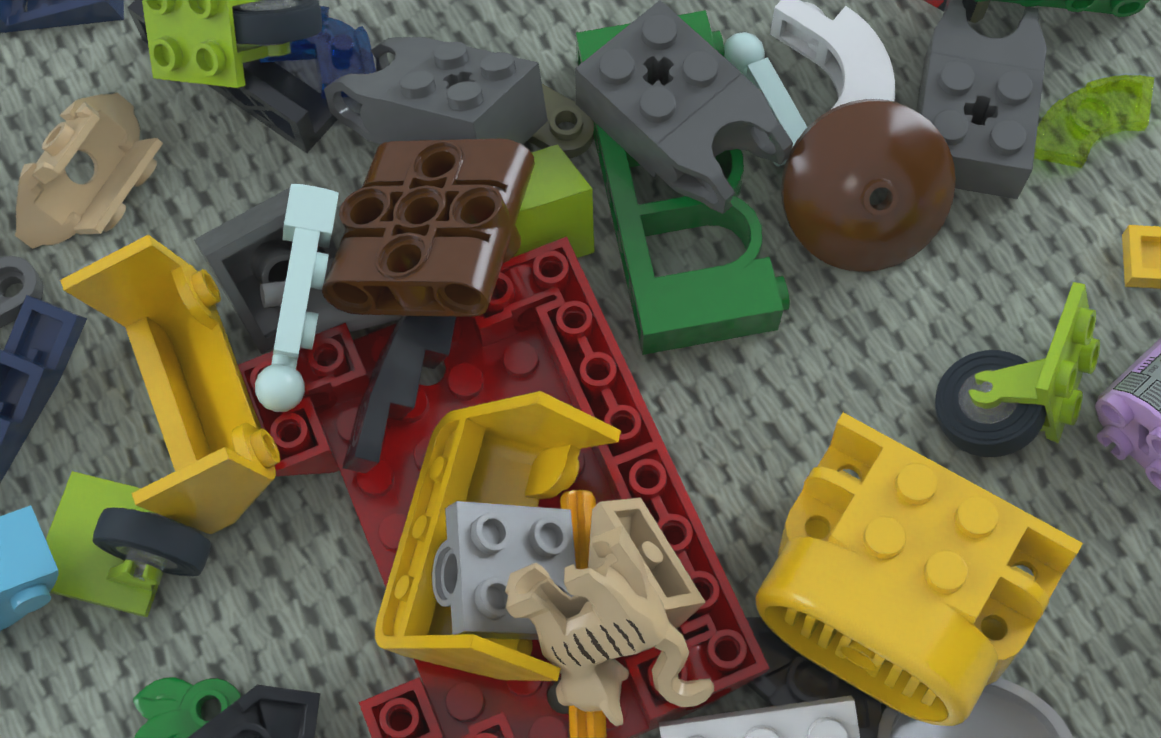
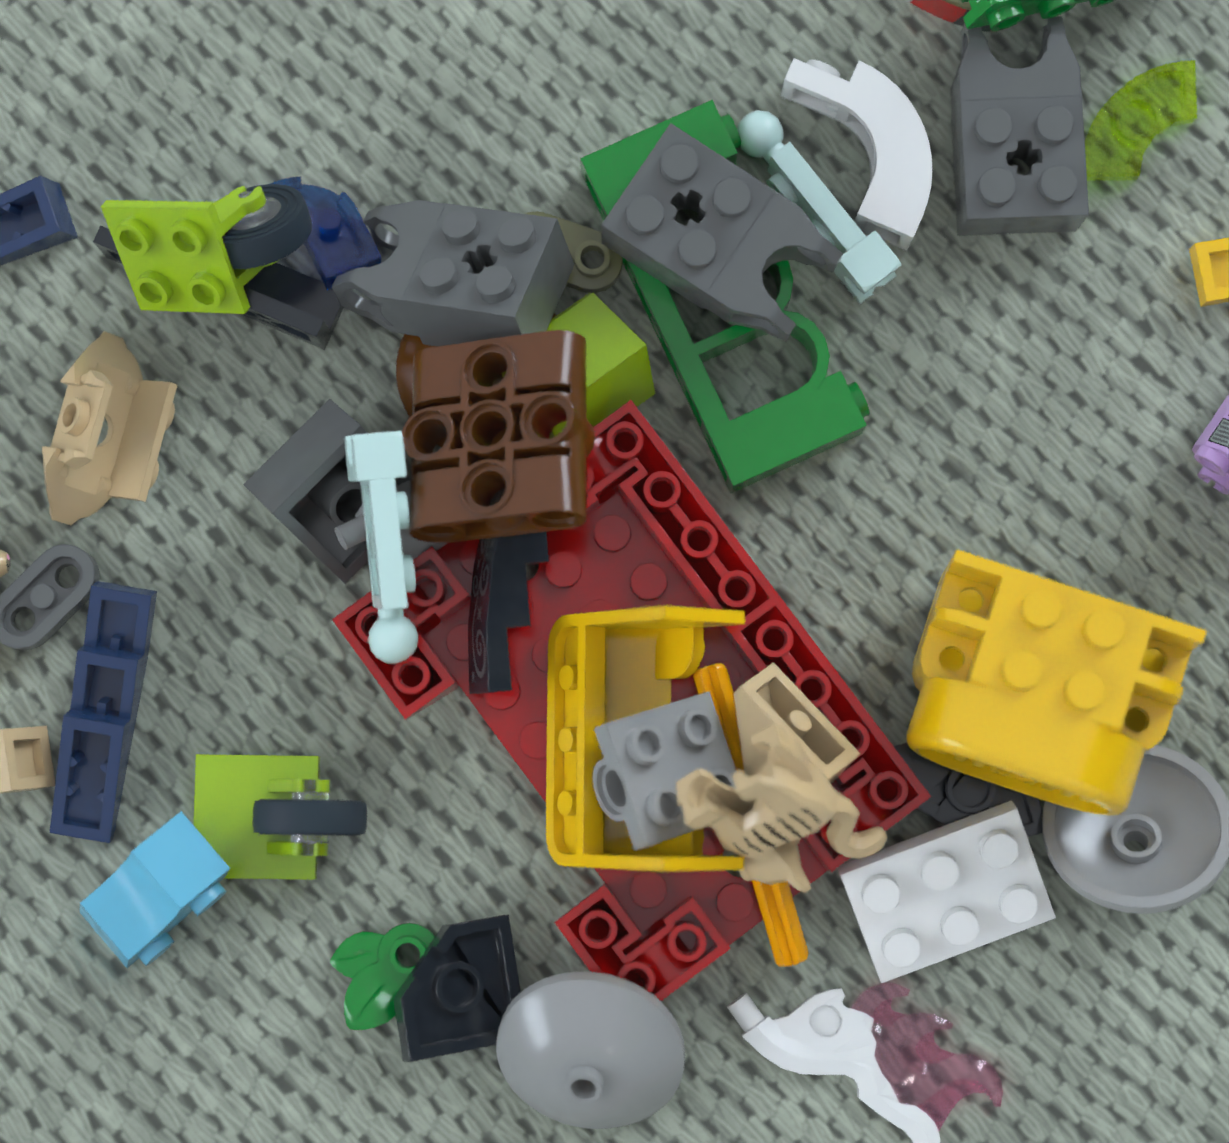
camera: 15 degrees left, 15 degrees up
(191, 379) = (300, 653): yellow windscreen -> none
(844, 161) = (910, 247): reddish brown dish -> none
(1001, 402) = (1097, 469): plate -> none

